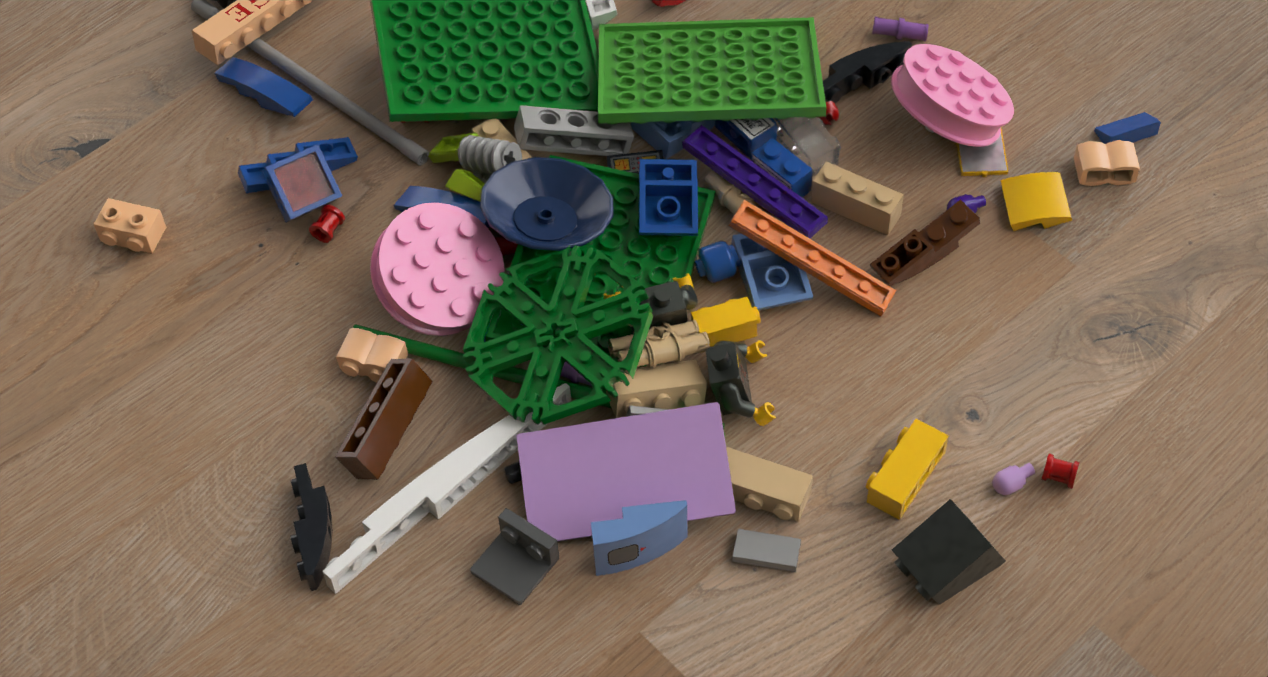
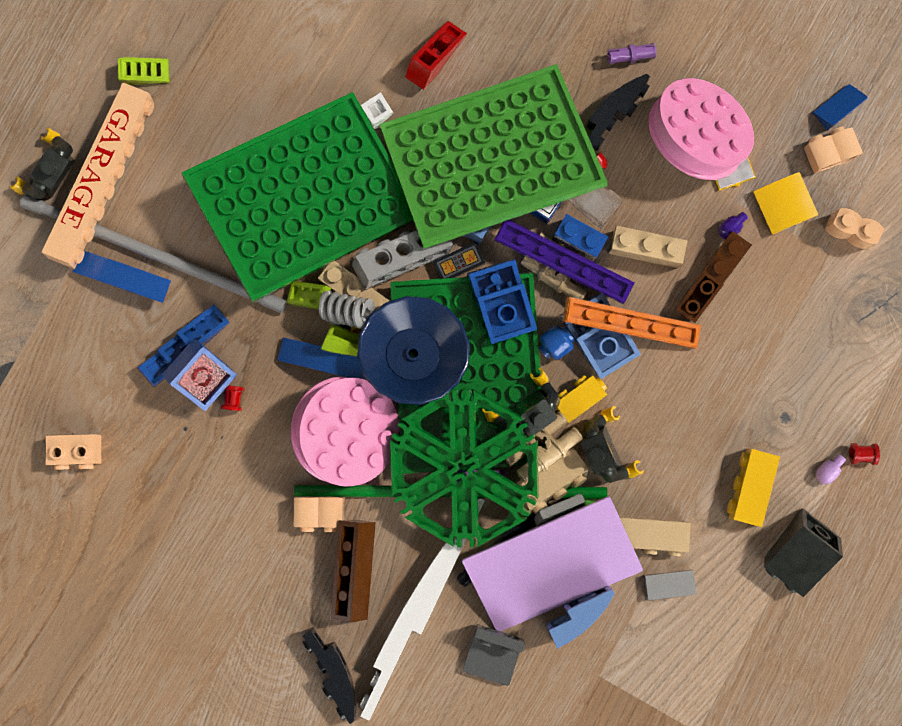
camera: 20 degrees left, 30 degrees up
(1112, 240) = (850, 226): none -> light nougat brick

